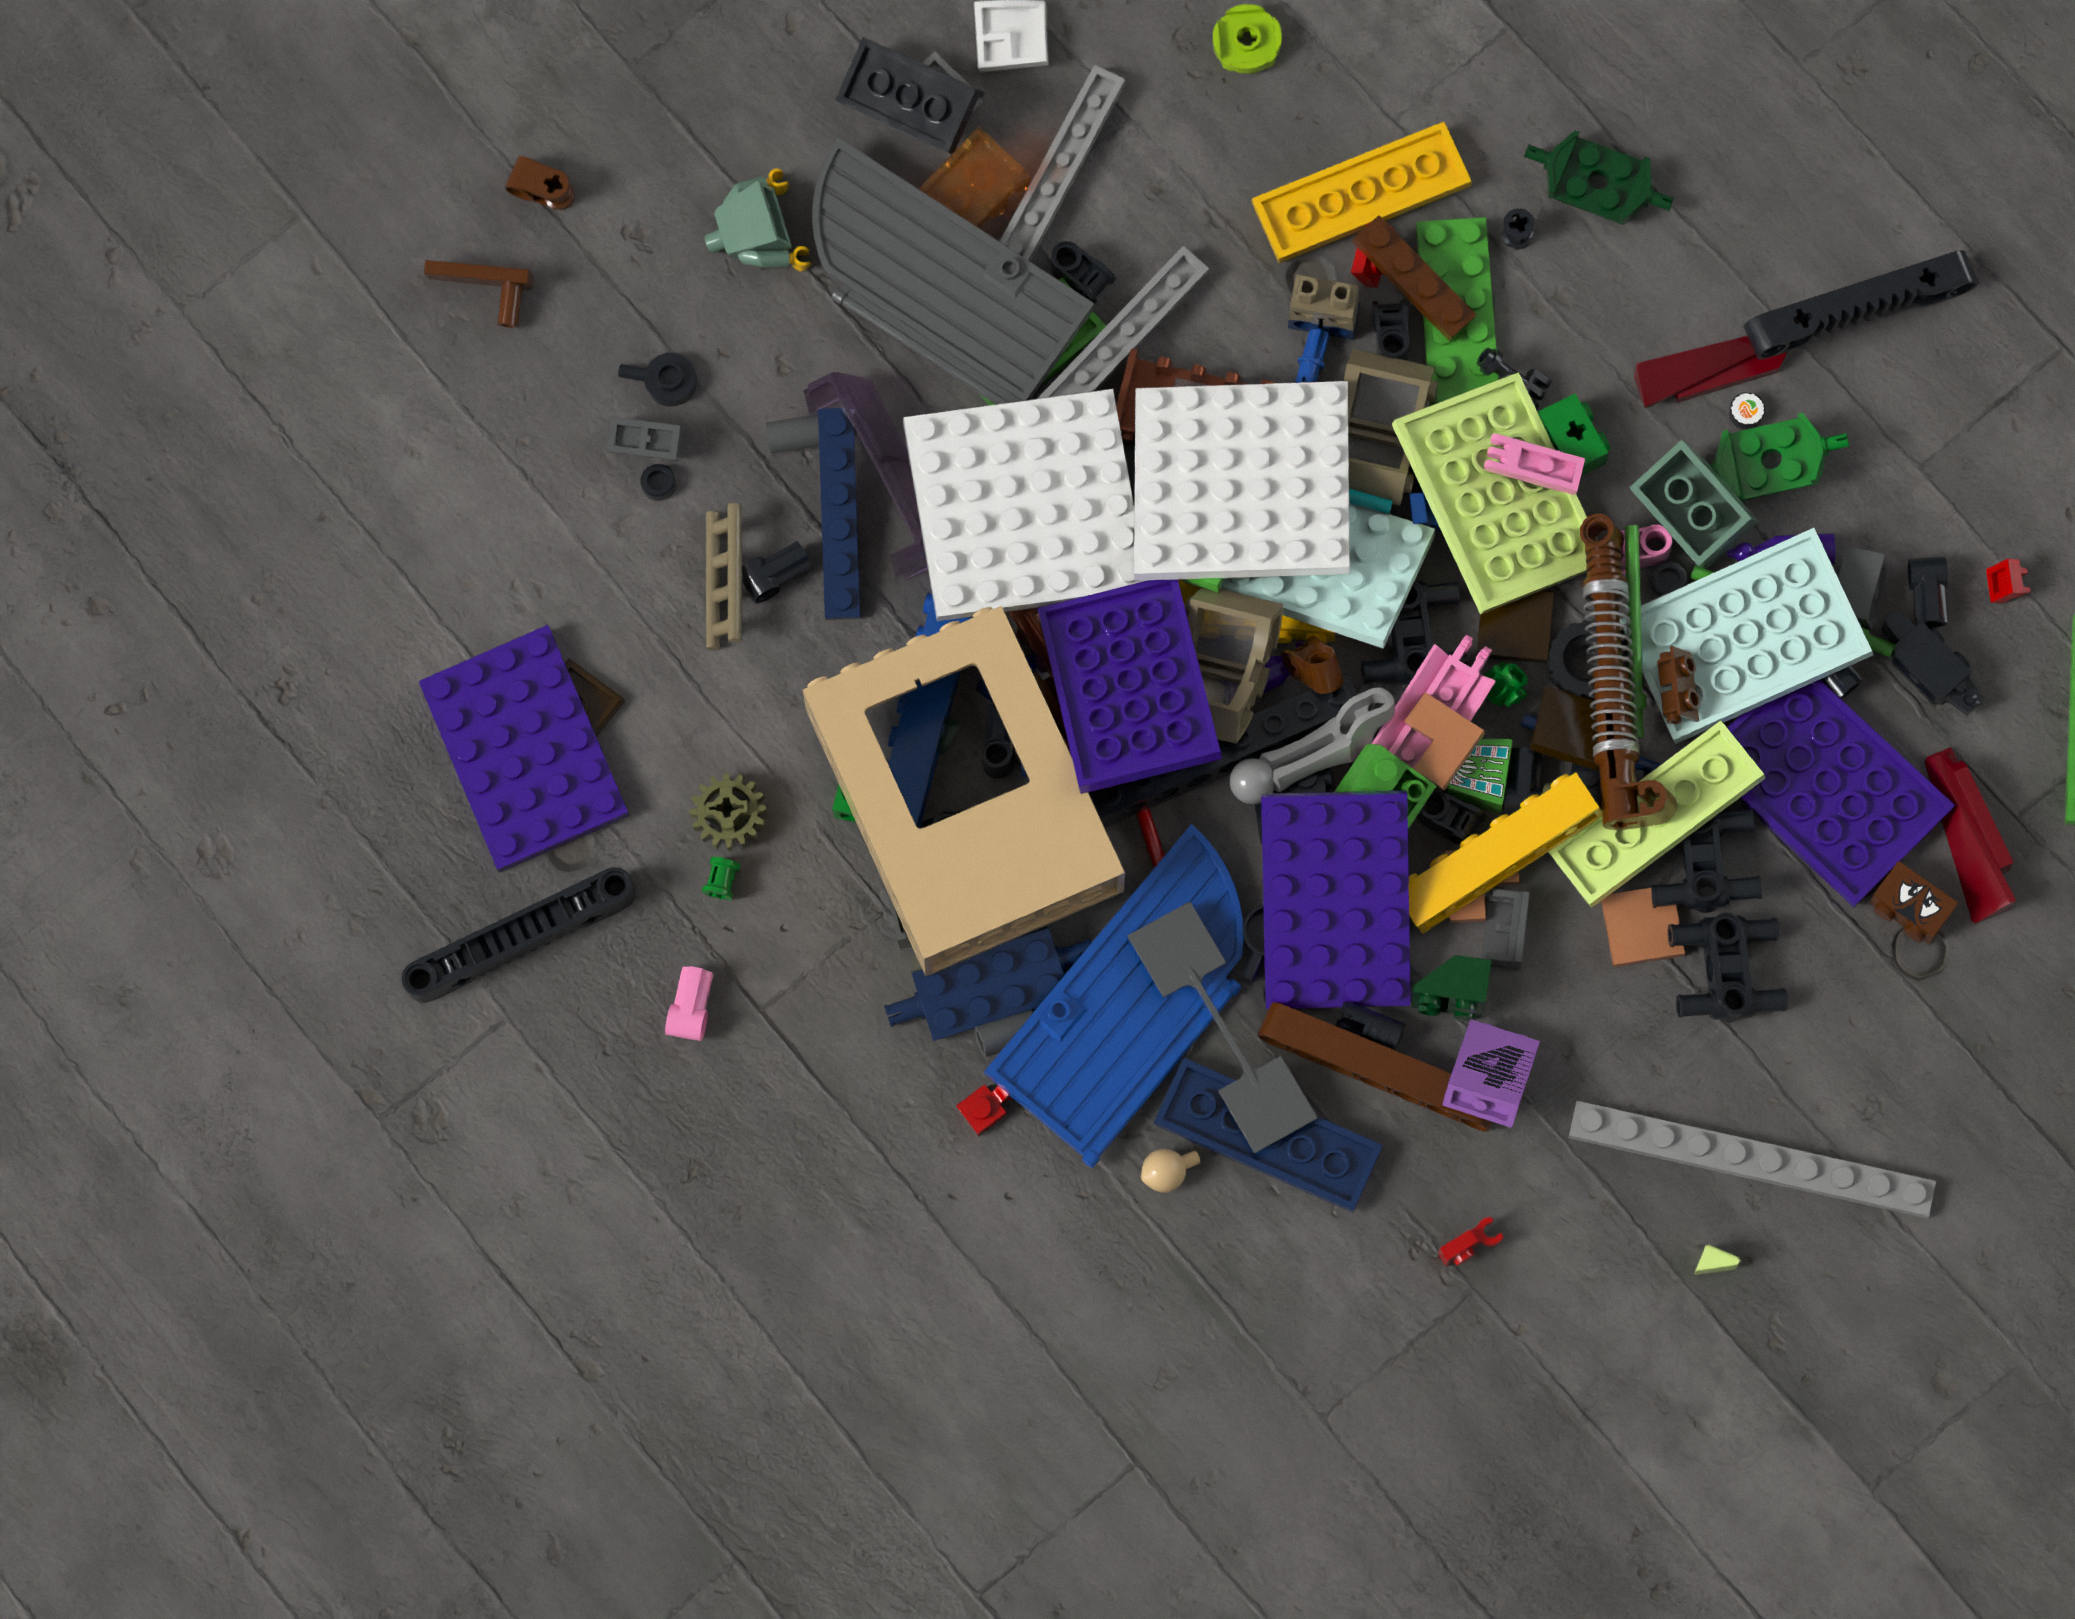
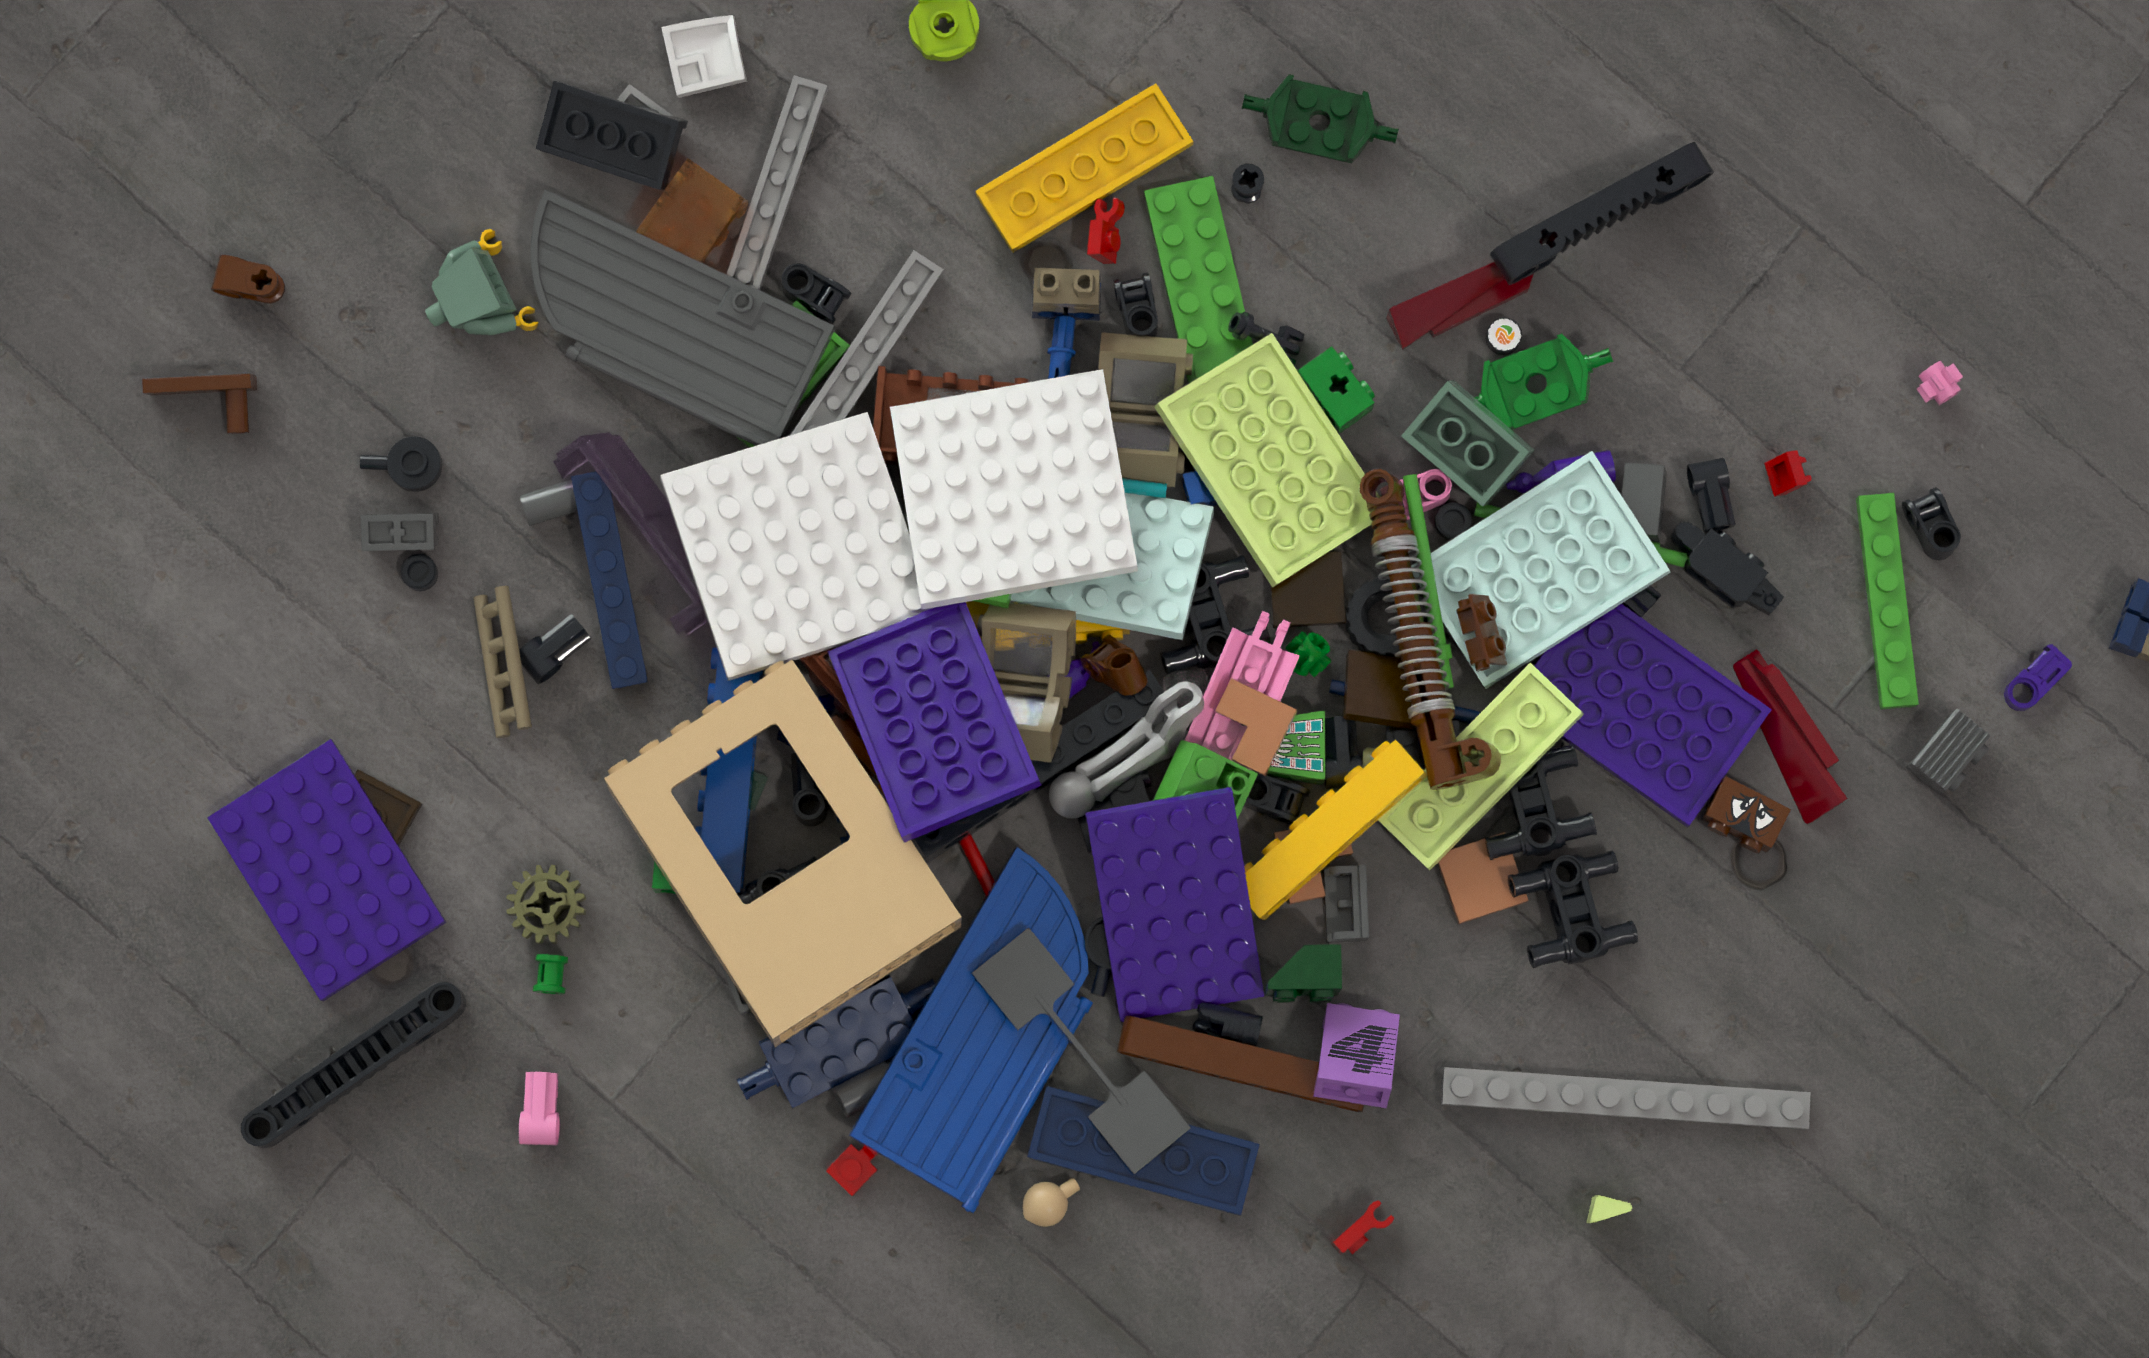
camera: 20 degrees left, 5 degrees up
(1414, 278) = (1152, 251): reddish brown plate -> none
(1535, 464) = (1304, 426): bright pink hinge -> none

